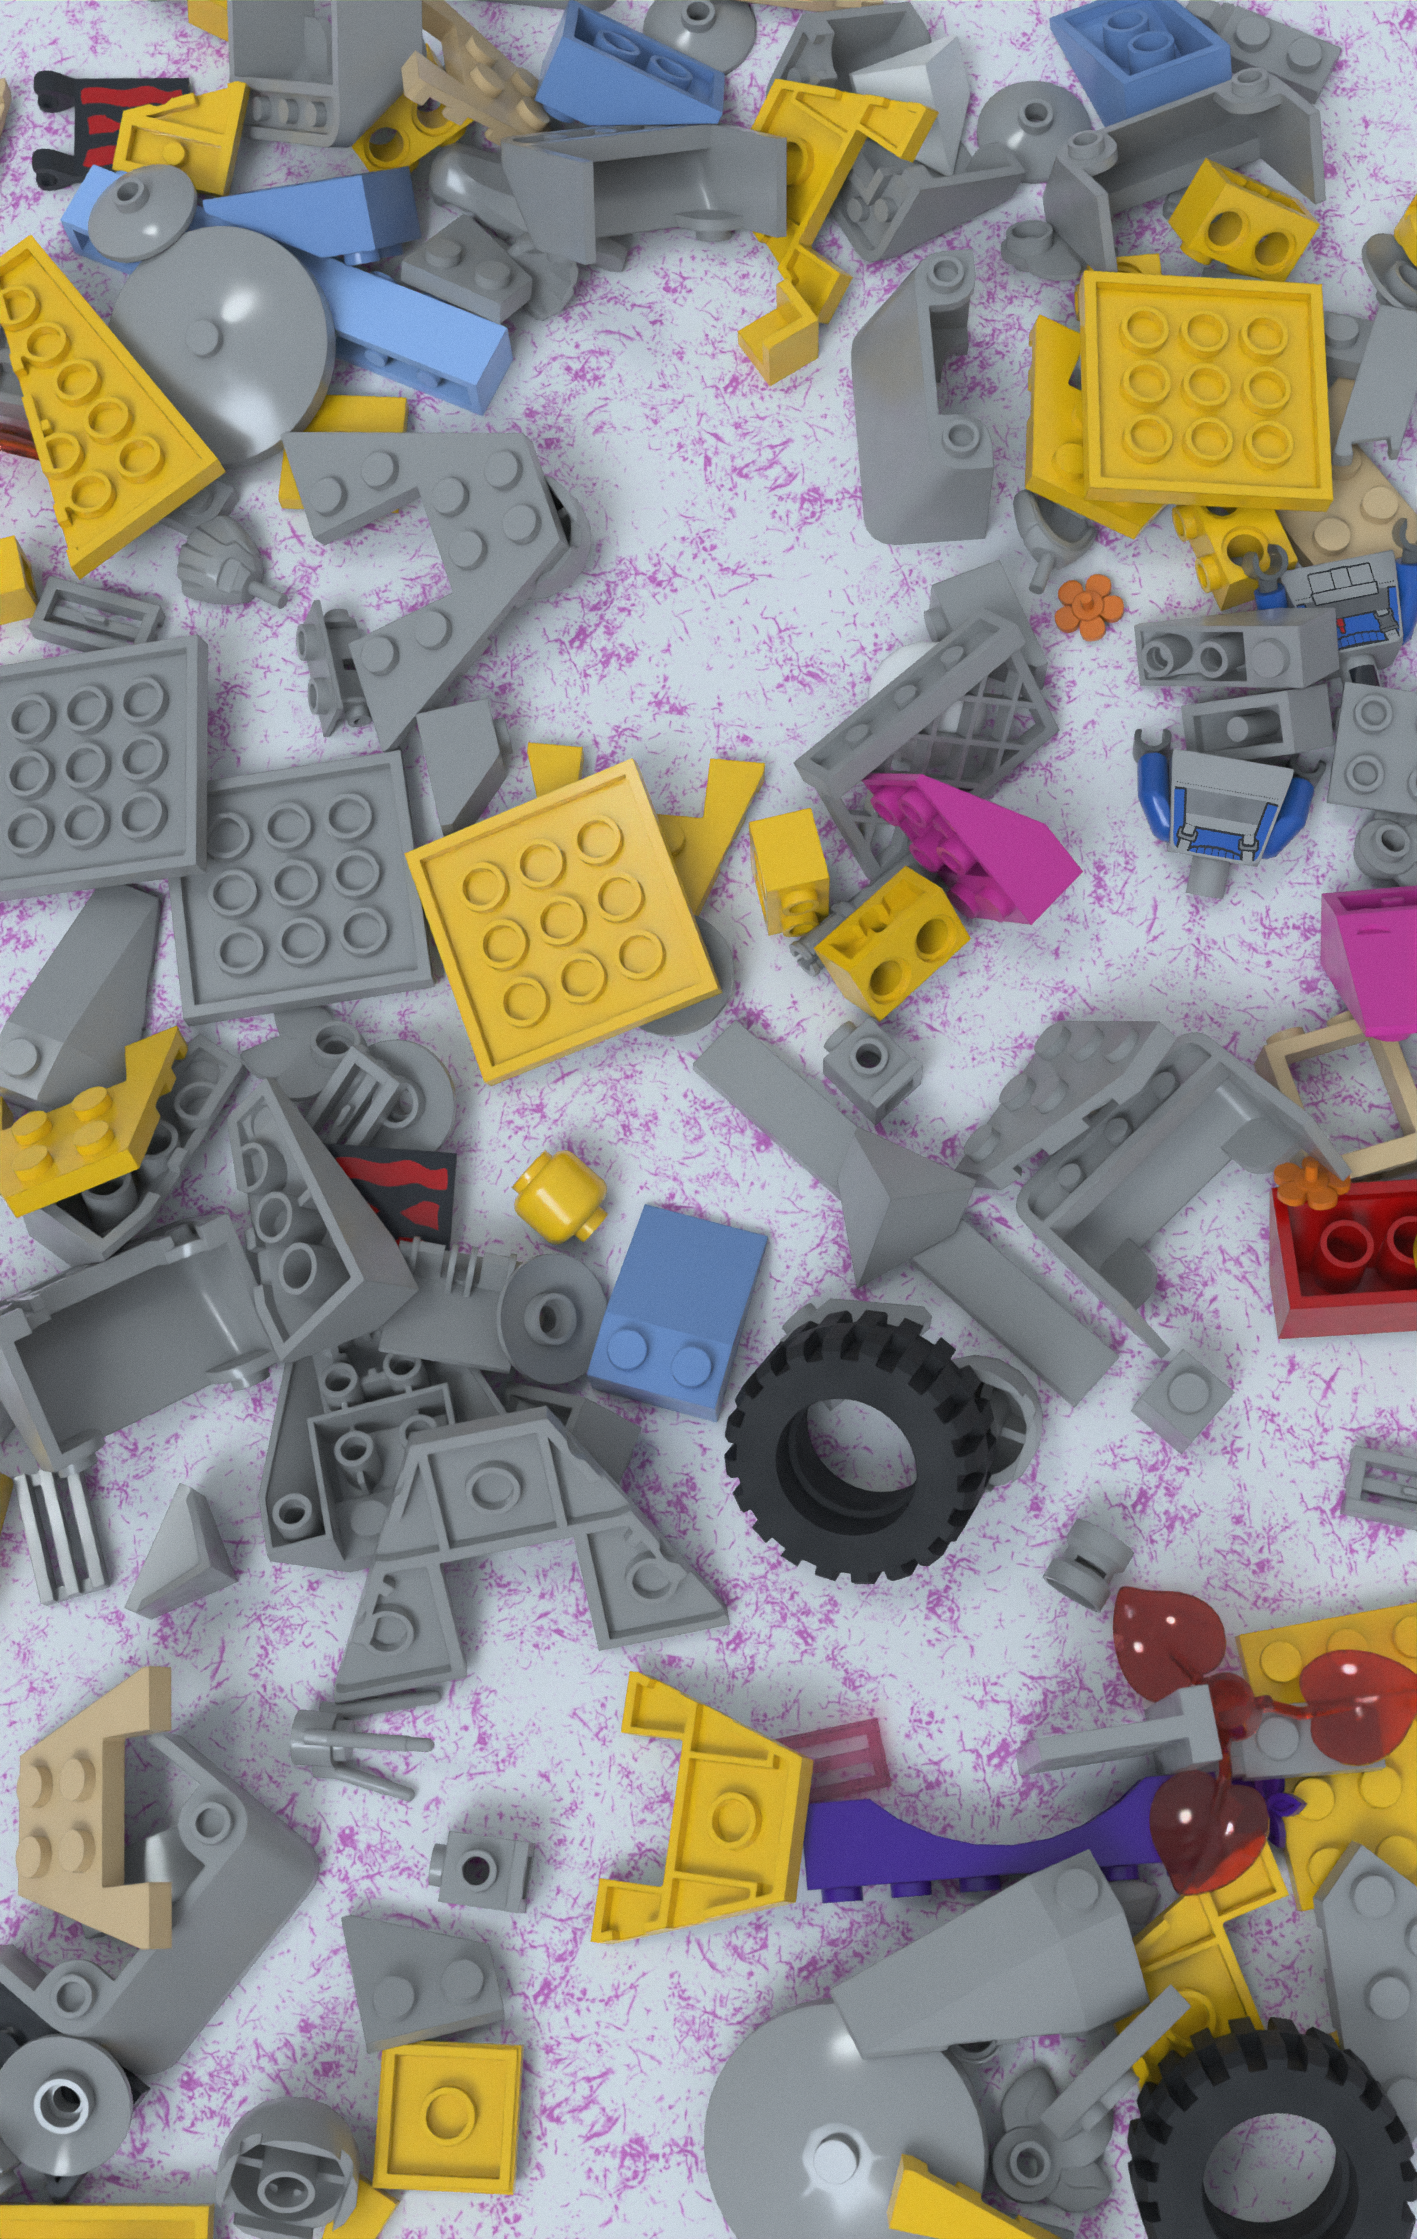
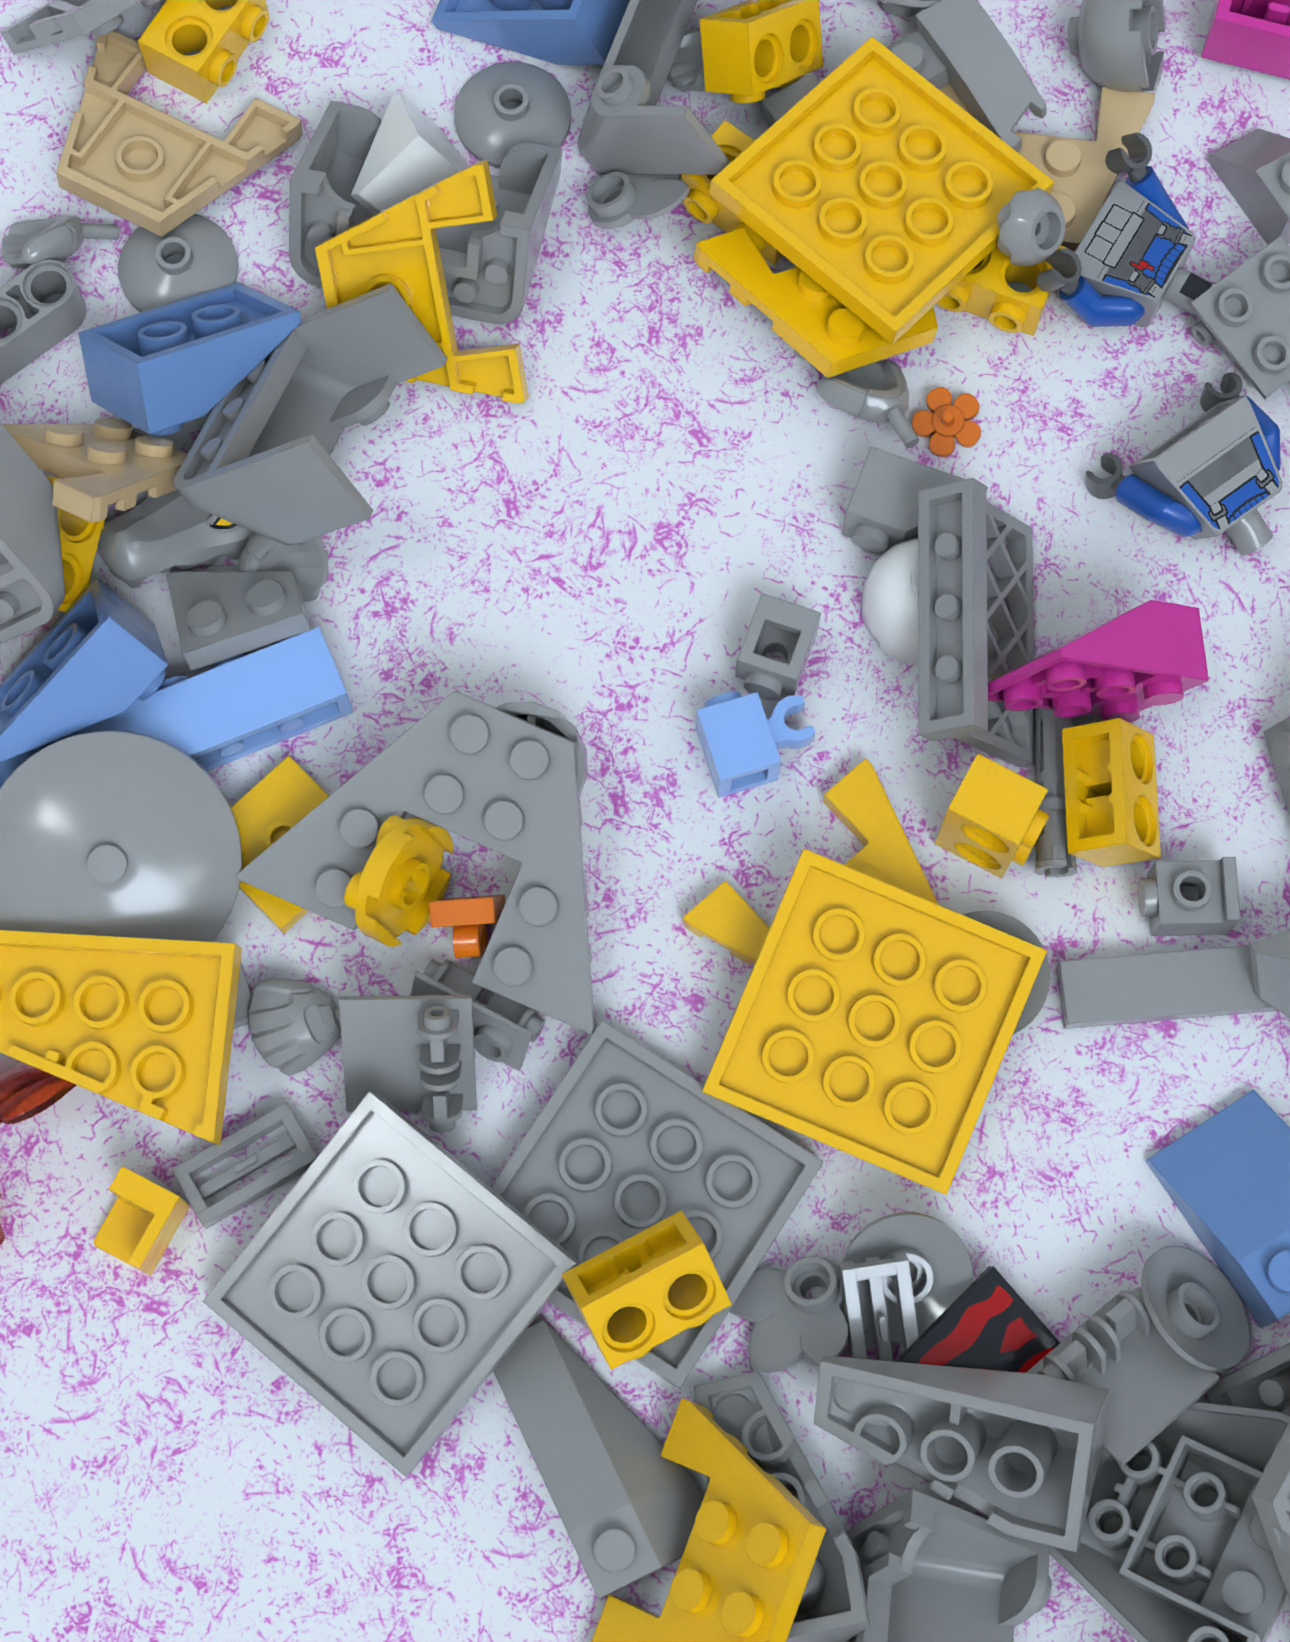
camera: 55 degrees left, 0 degrees up
(220, 913) = (641, 1281): none -> yellow brick
(259, 649) = (411, 1054): none -> light grey hinge
(366, 508) = (400, 879): none -> yellow plate
(390, 603) = (469, 920): none -> orange tile
(463, 760) = (656, 982): light grey slope -> none
(560, 1197) = (1095, 1217): yellow head -> none
(698, 668) = (741, 741): none -> light blue brick
(782, 338) = (514, 435): yellow panel -> none
(790, 616) = (779, 628): none -> light grey brick
(919, 470) = (683, 407): light grey windscreen -> none
(1240, 649) = (1101, 349): light grey slope -> none
(1260, 724) = (1166, 389): light grey slope -> none
(1271, 493) = (1030, 227): none -> light grey plate

